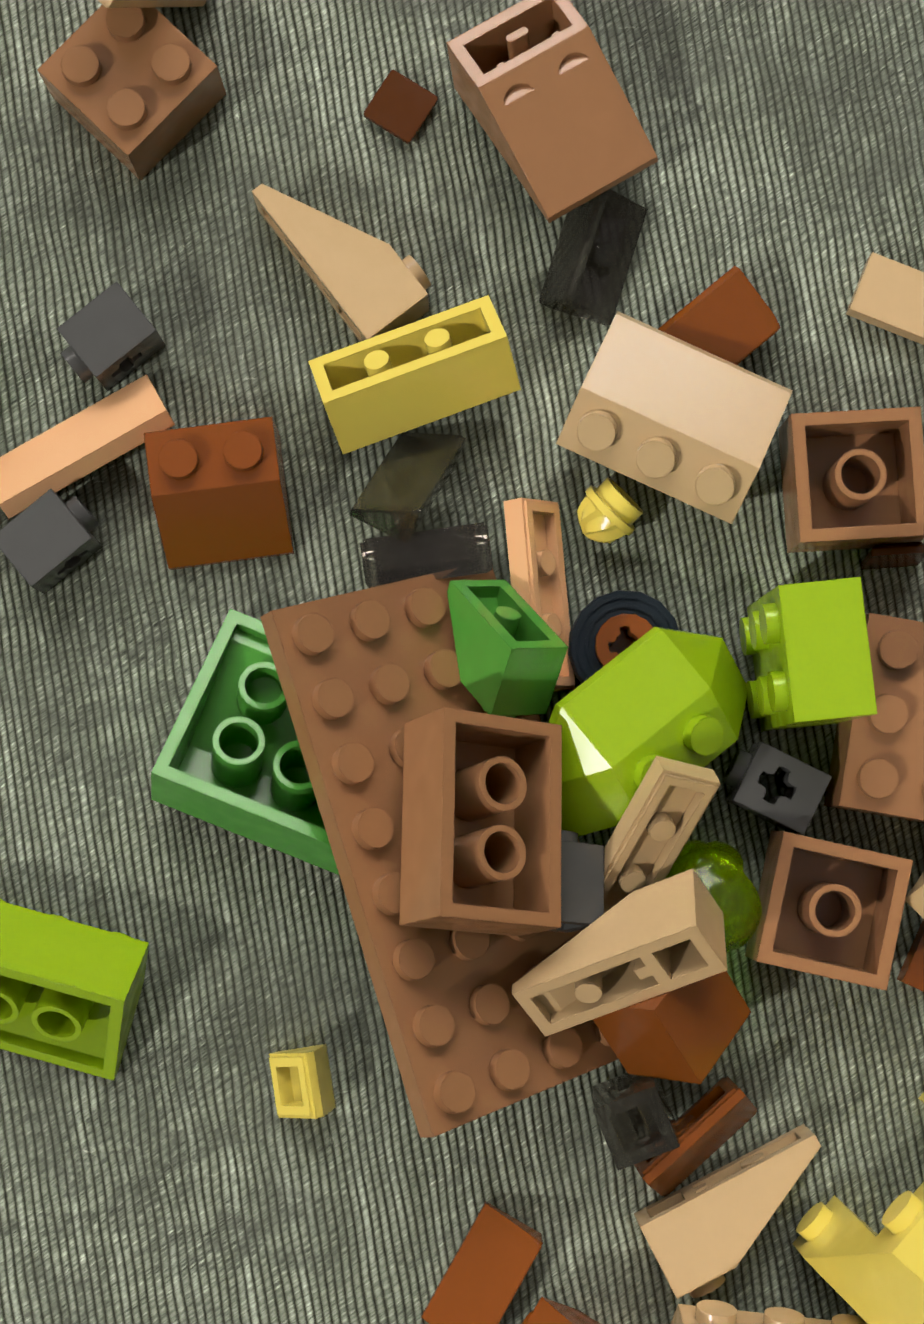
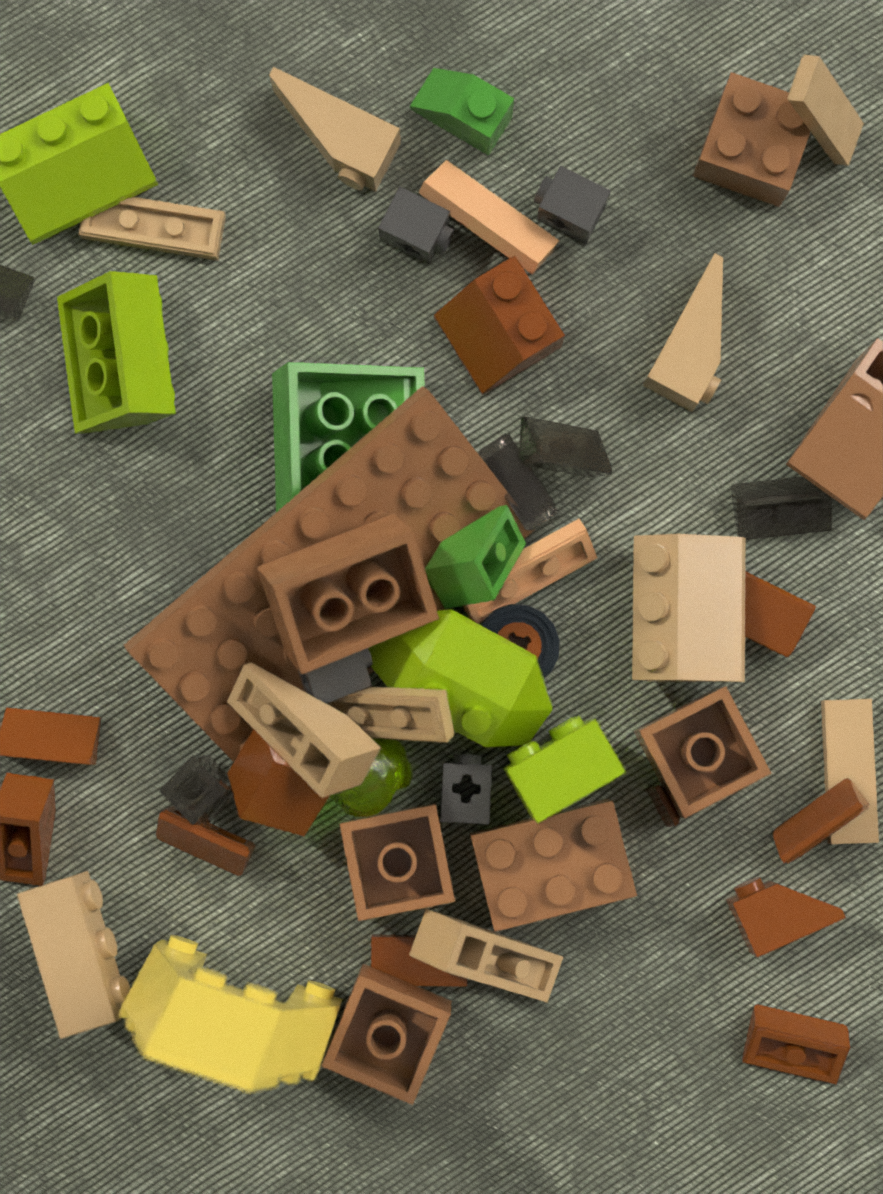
camera: 70 degrees right, 0 degrees up
(302, 1082) = (127, 559): light yellow slope -> none
(400, 106) = (825, 329): reddish brown piece -> none
(415, 374) = (638, 419): light yellow brick -> none
(607, 512) = (605, 594): light yellow plate -> none
(717, 1218) = (155, 876): tan slope -> none

